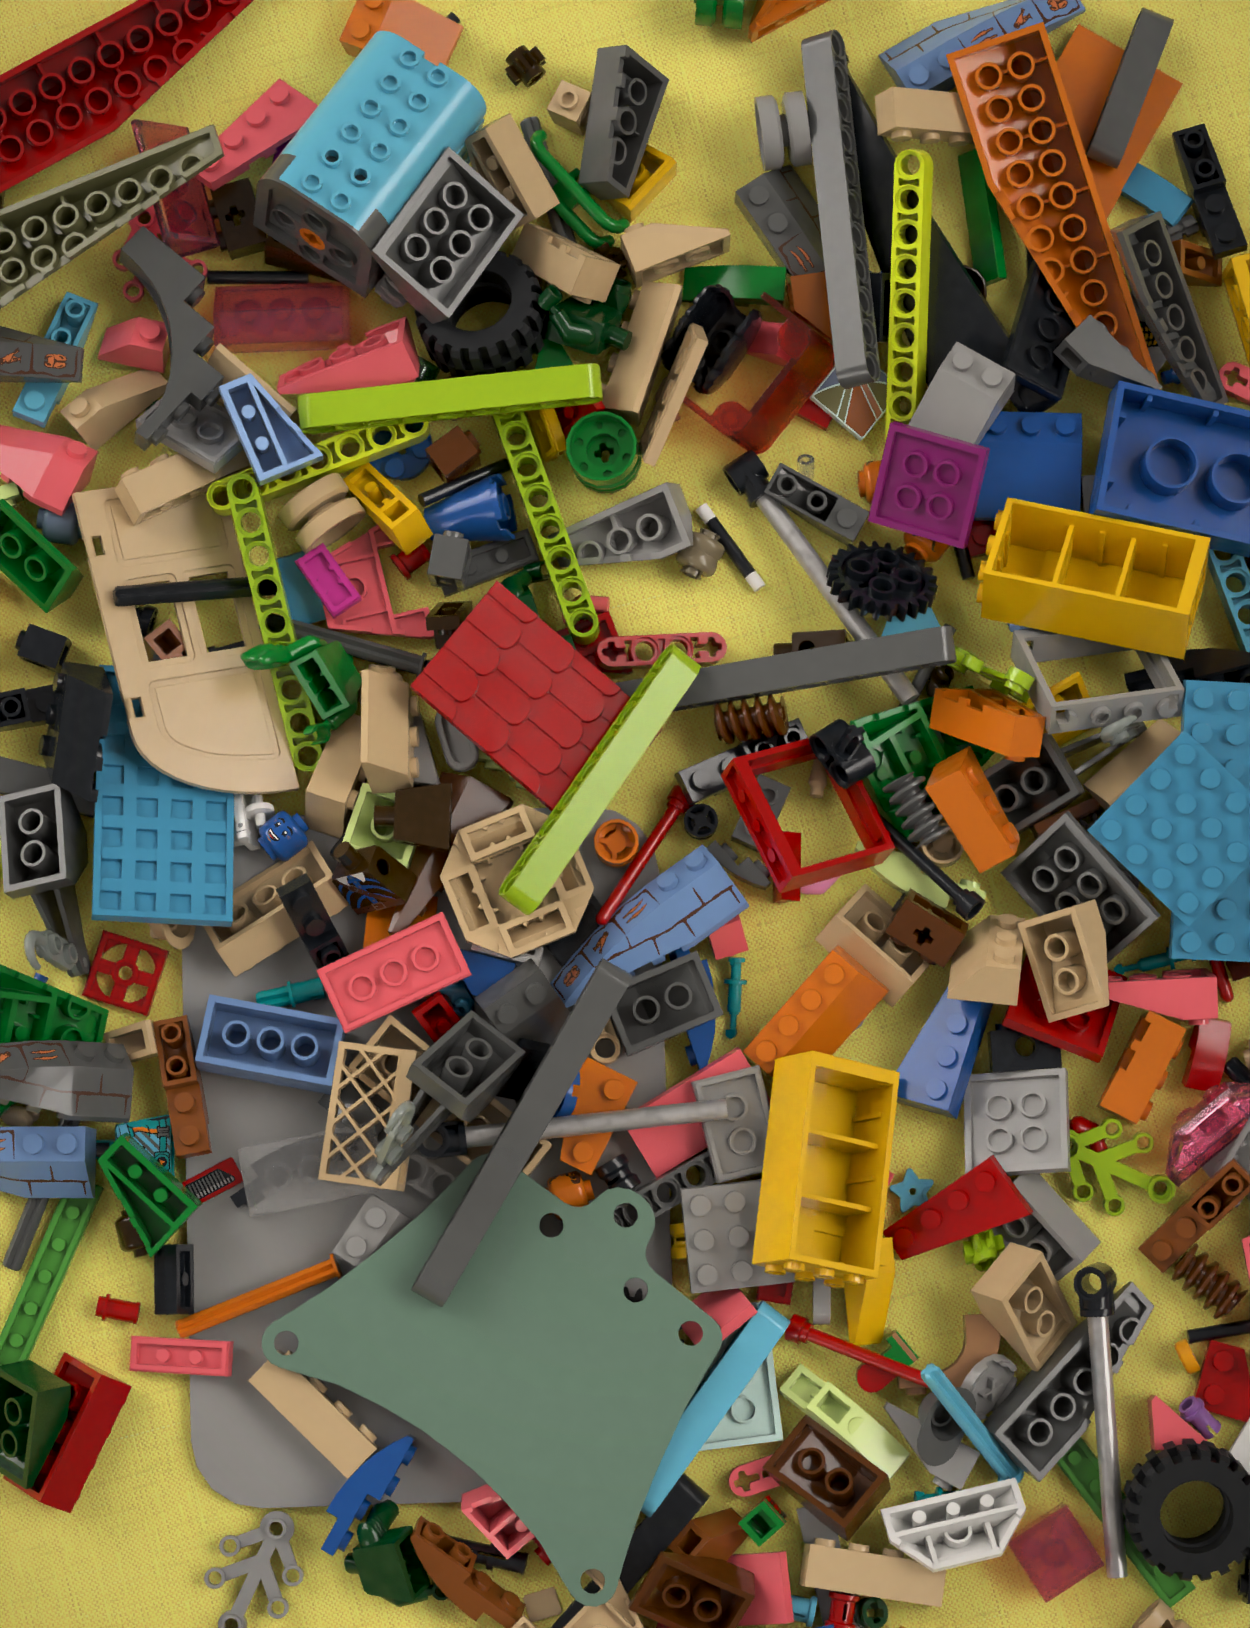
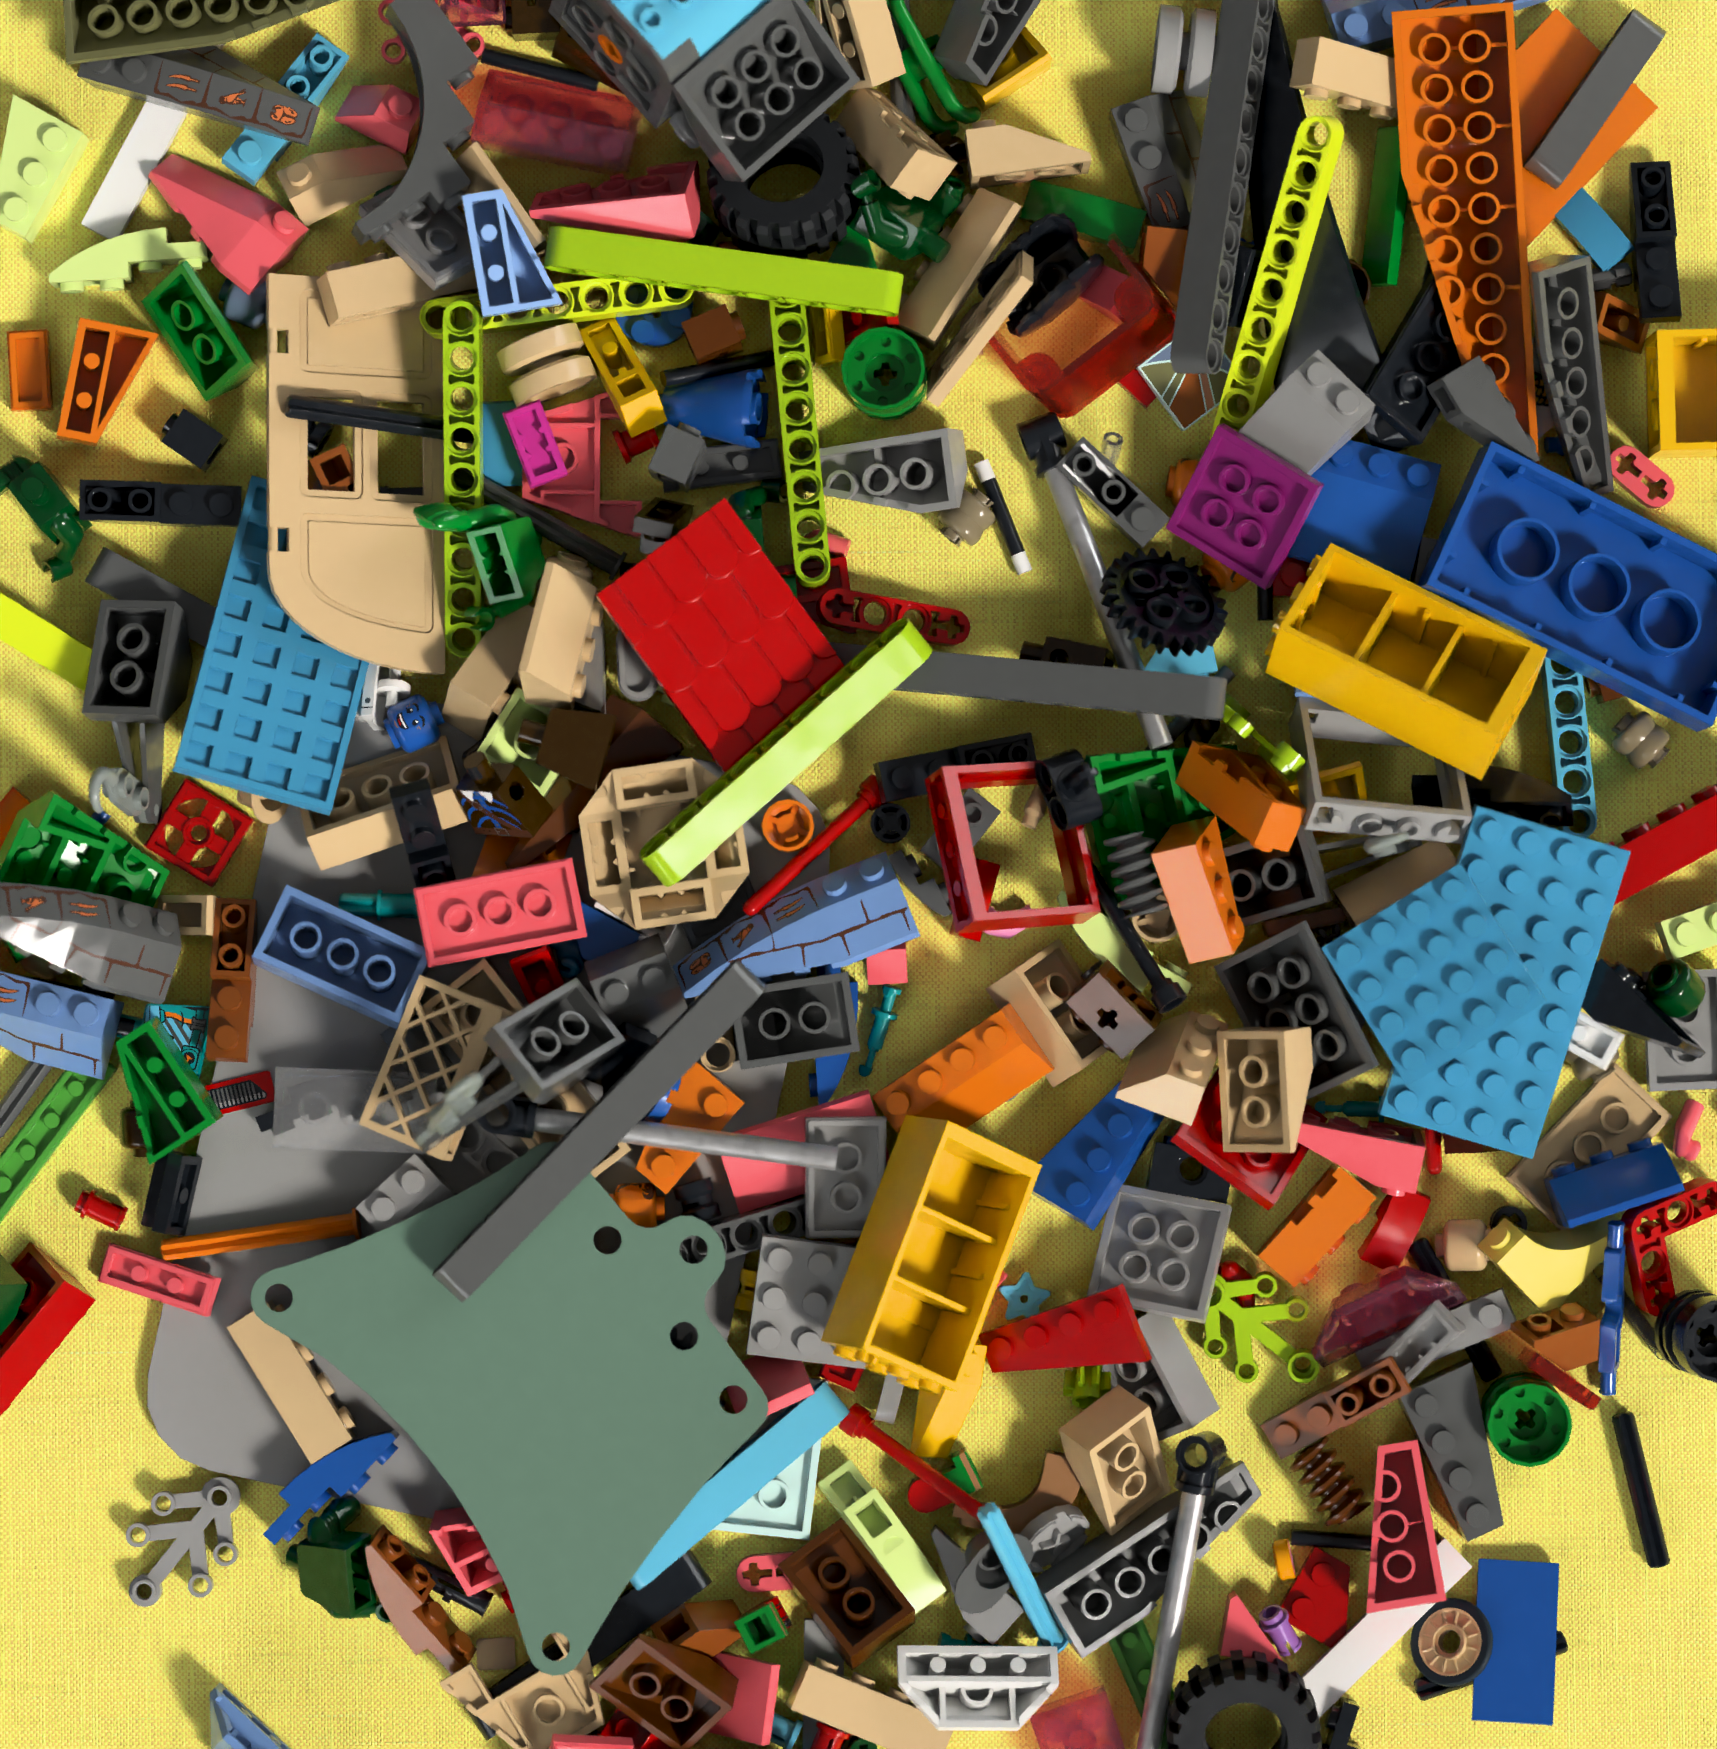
camera: 10 degrees right, 5 degrees up
(76, 726) = (207, 544): black wedge -> none
(751, 720) = (975, 724): reddish brown piece -> none

